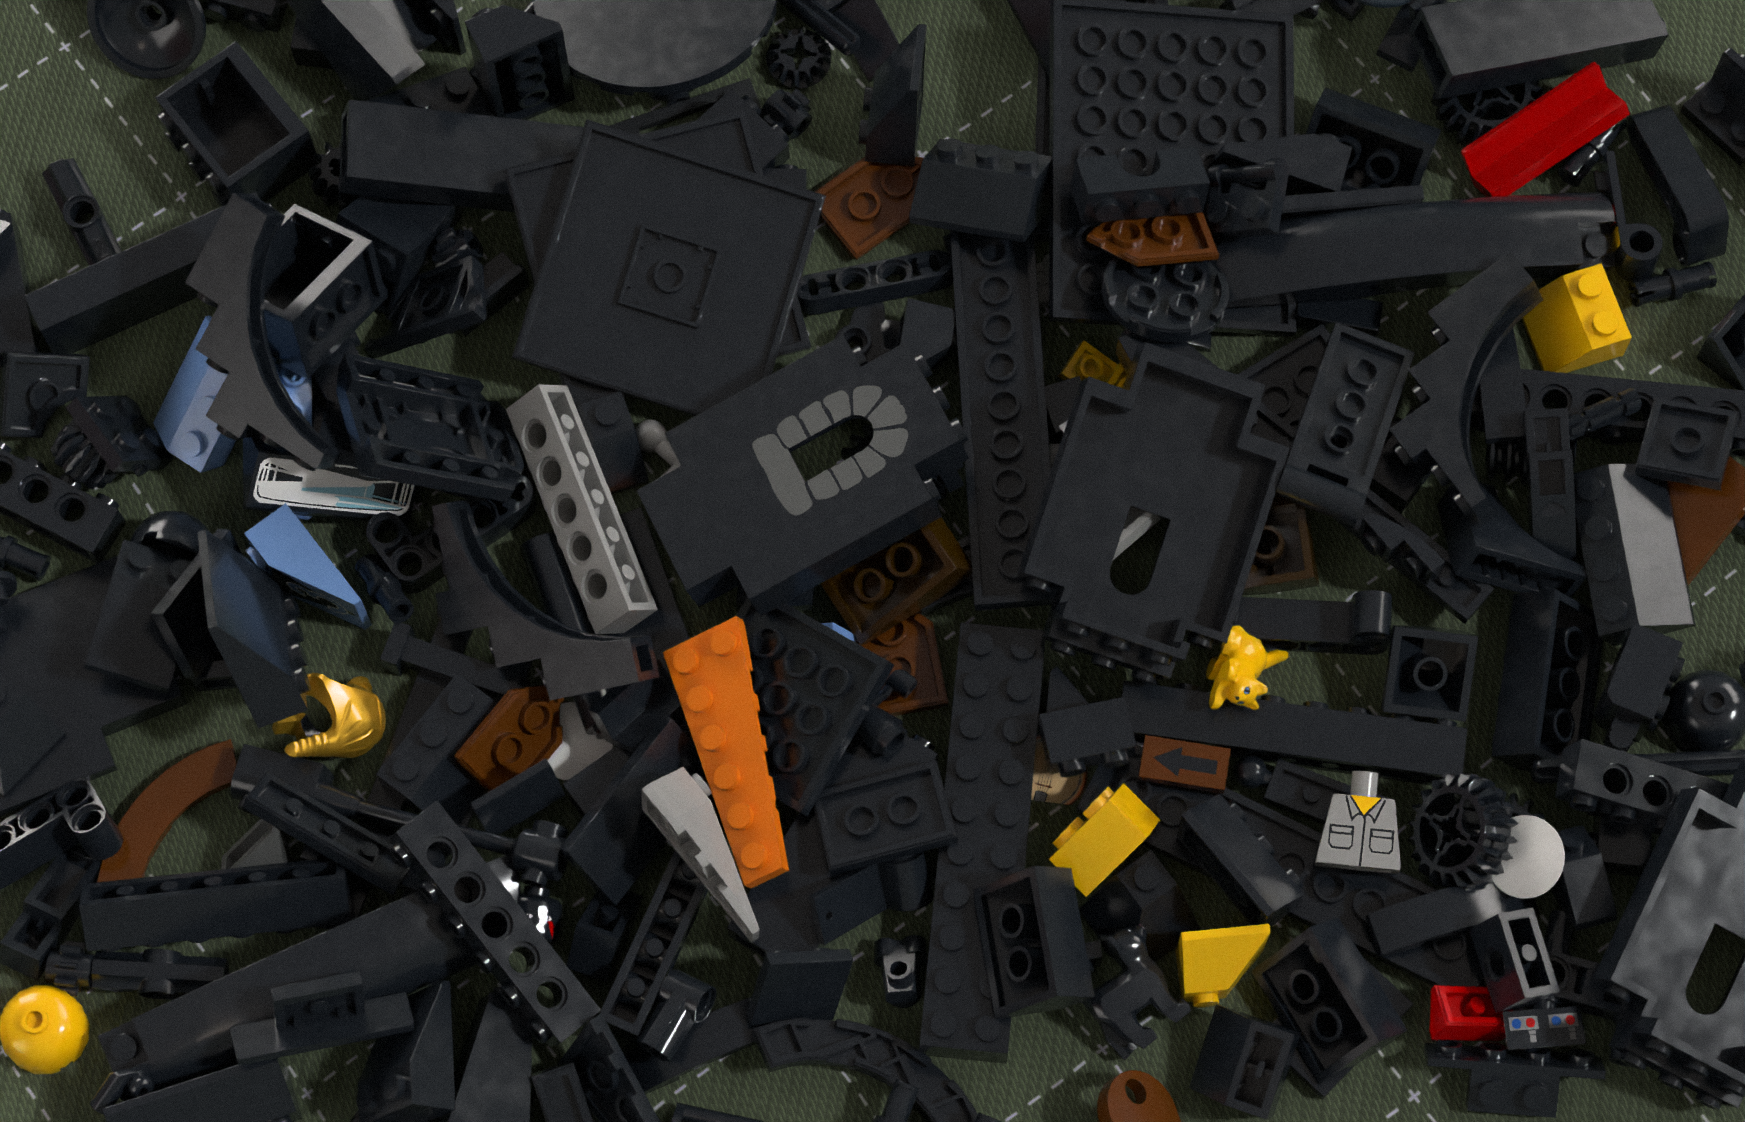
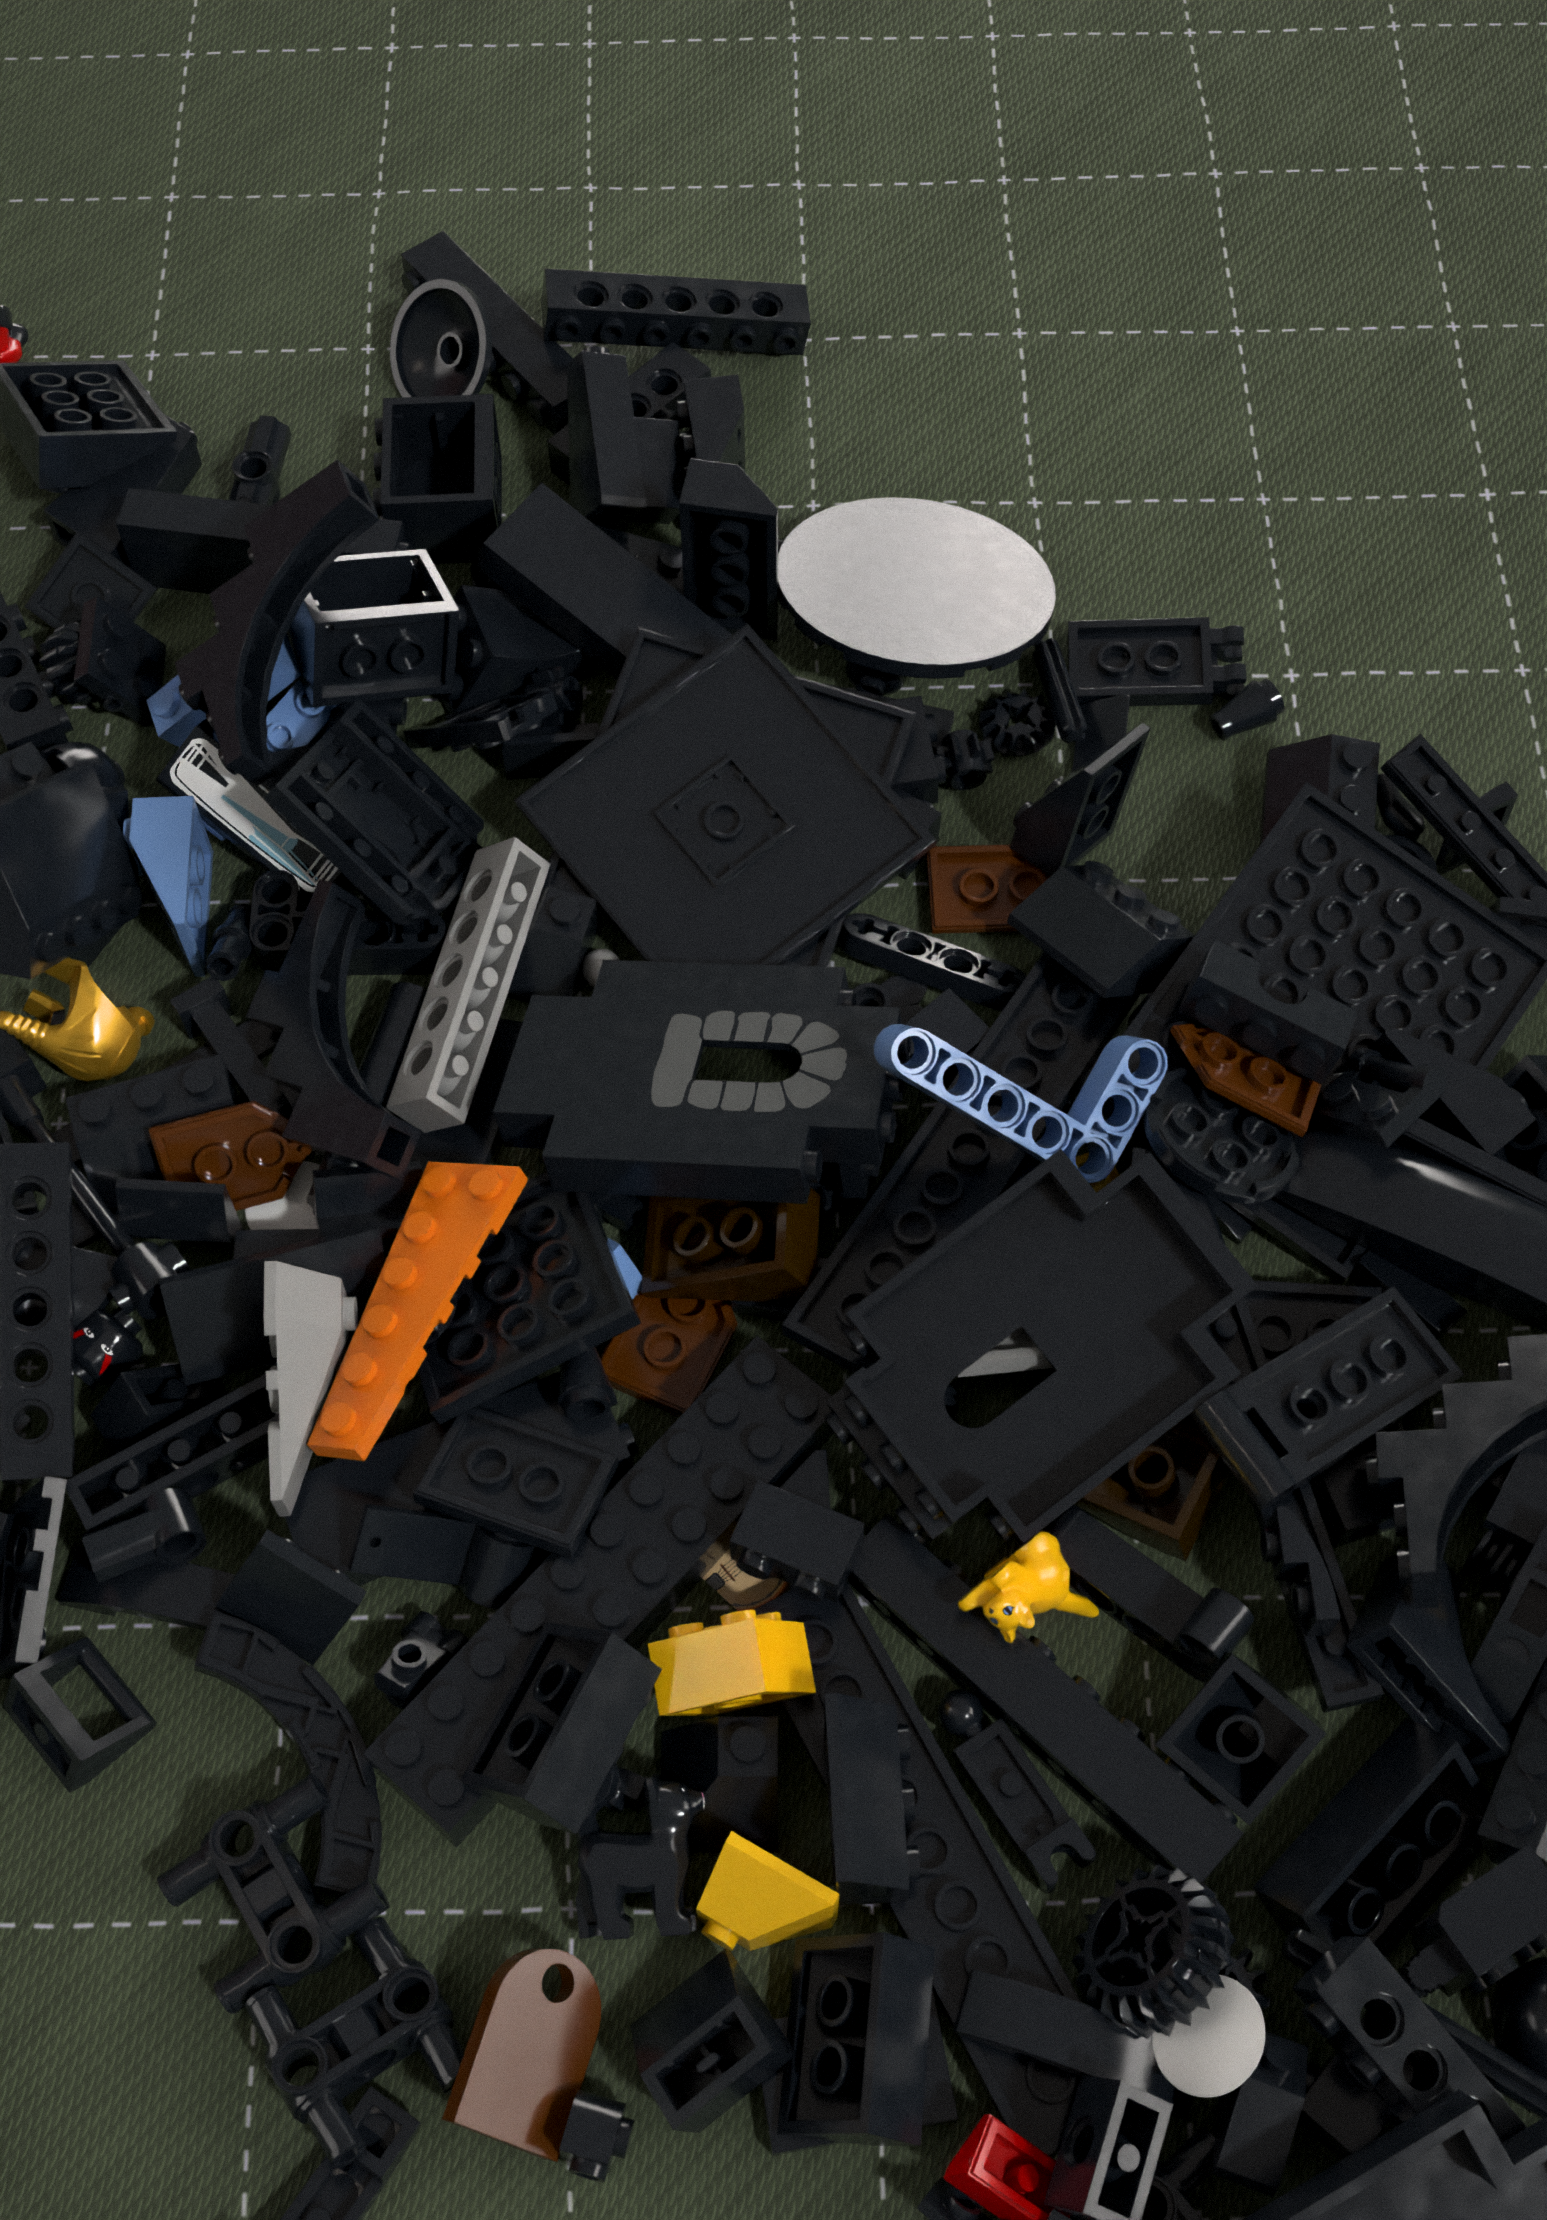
camera: 35 degrees right, 10 degrees down
(898, 682) = (649, 1356): black hand -> none
(1074, 343) = (1022, 1109): none -> medium blue beam
(1184, 764) = (888, 1650): reddish brown tile -> none
(1360, 830) = (1031, 1862): light grey torso -> none

